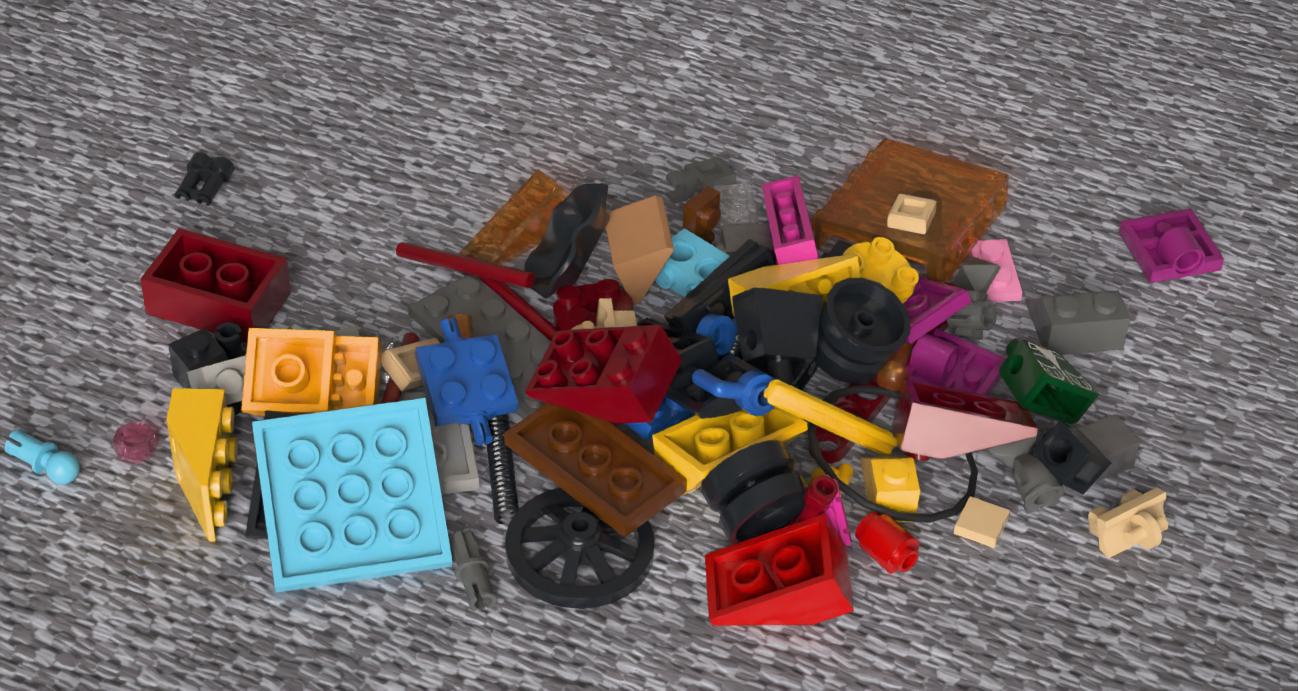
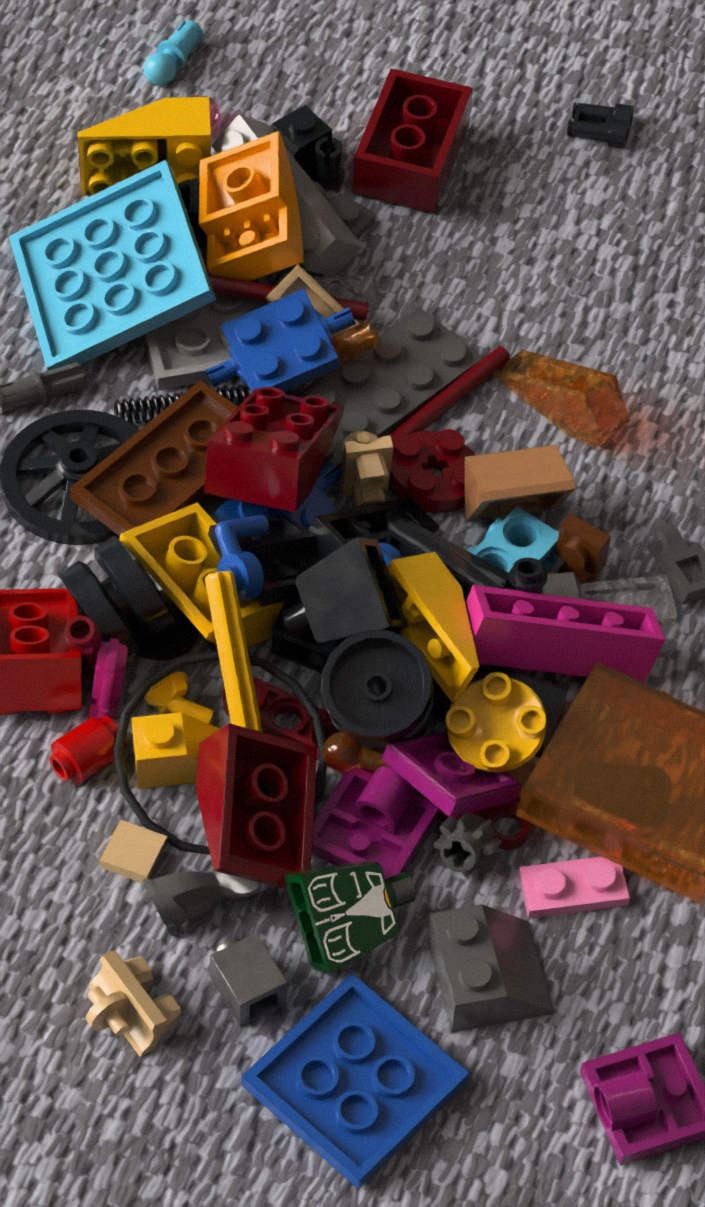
camera: 85 degrees right, 10 degrees up
(465, 265) = (484, 346): dark red bar -> none
(569, 239) = (511, 425): black piece -> none
(757, 227) = (528, 575): none -> black pin
(911, 213) = (602, 755): tan tile -> none
(976, 274) = (542, 851): dark grey slope -> none
(1082, 466) = (204, 922): black brick -> none
(1178, 397) = (355, 1080): none -> blue plate

